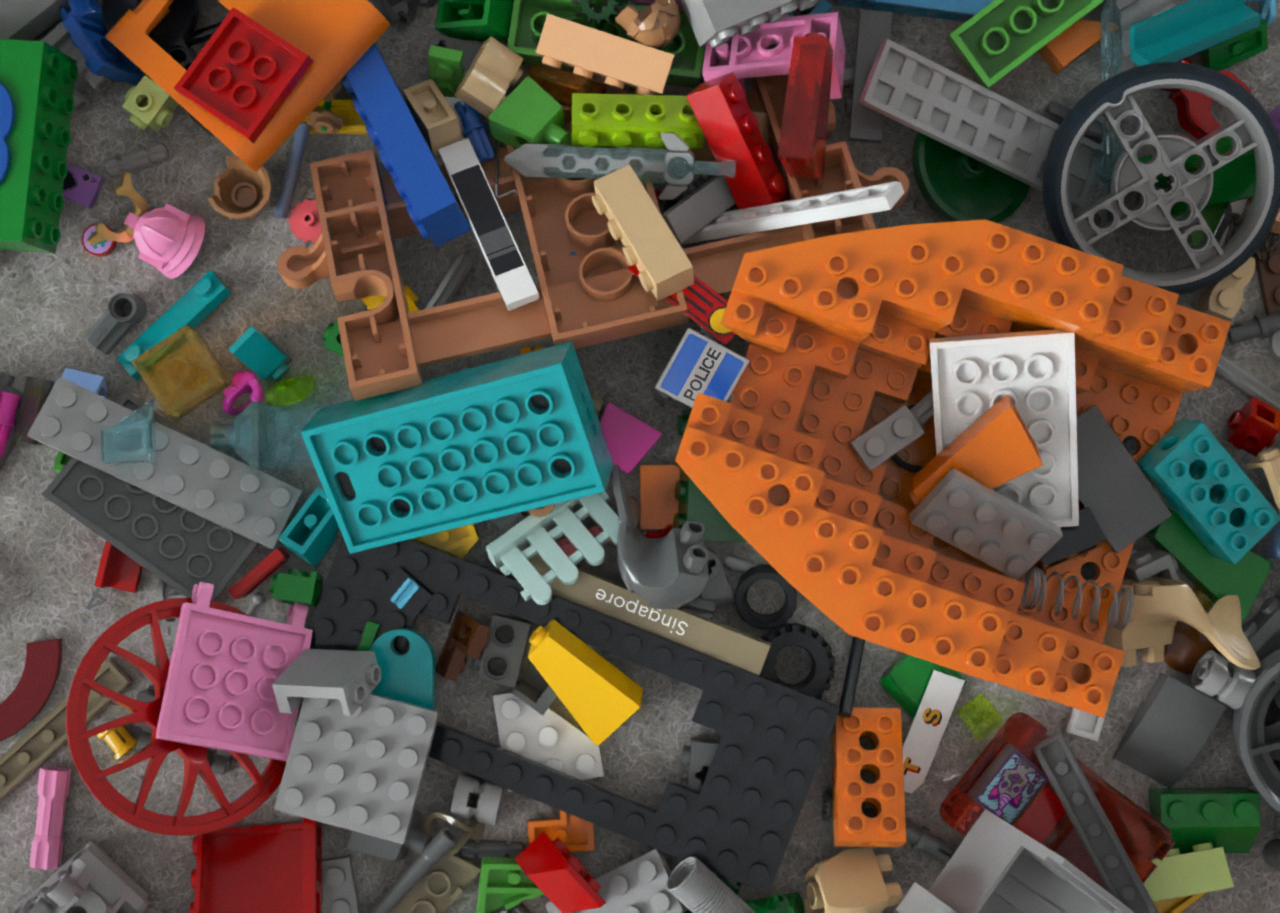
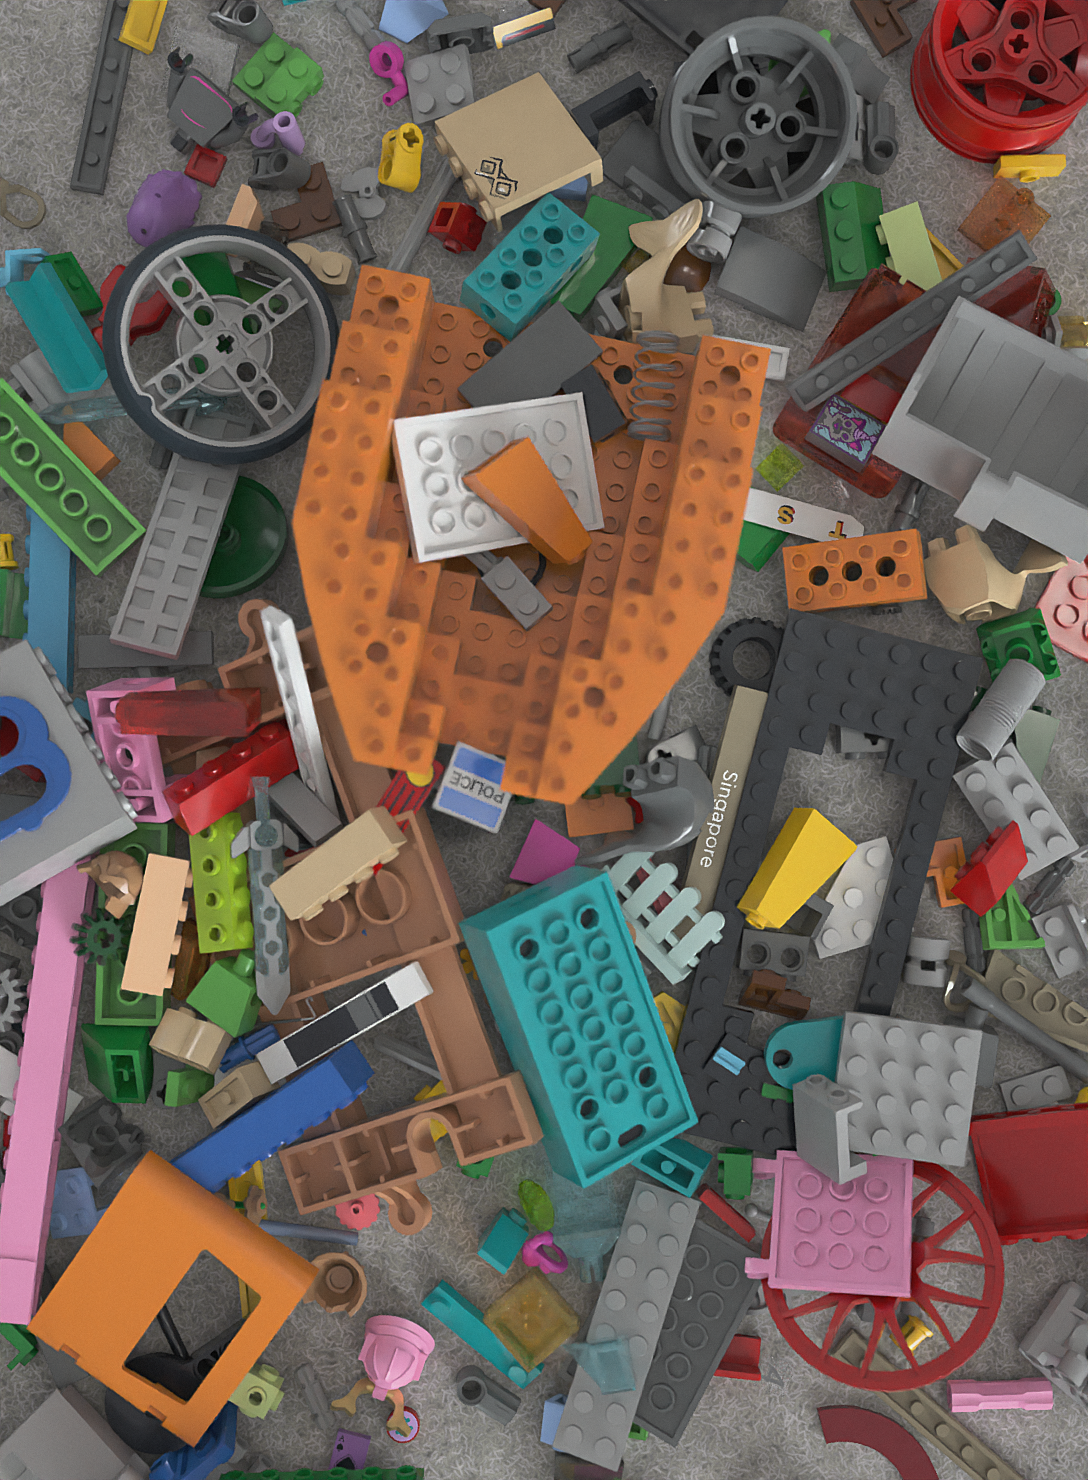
camera: 105 degrees left, 0 degrees up
(243, 75) = (221, 1295): red plate -> none
(758, 620) = (710, 701): black tyre -> none
(851, 677) = (762, 600): black bar -> none
(985, 524) = (593, 485): light grey plate -> none

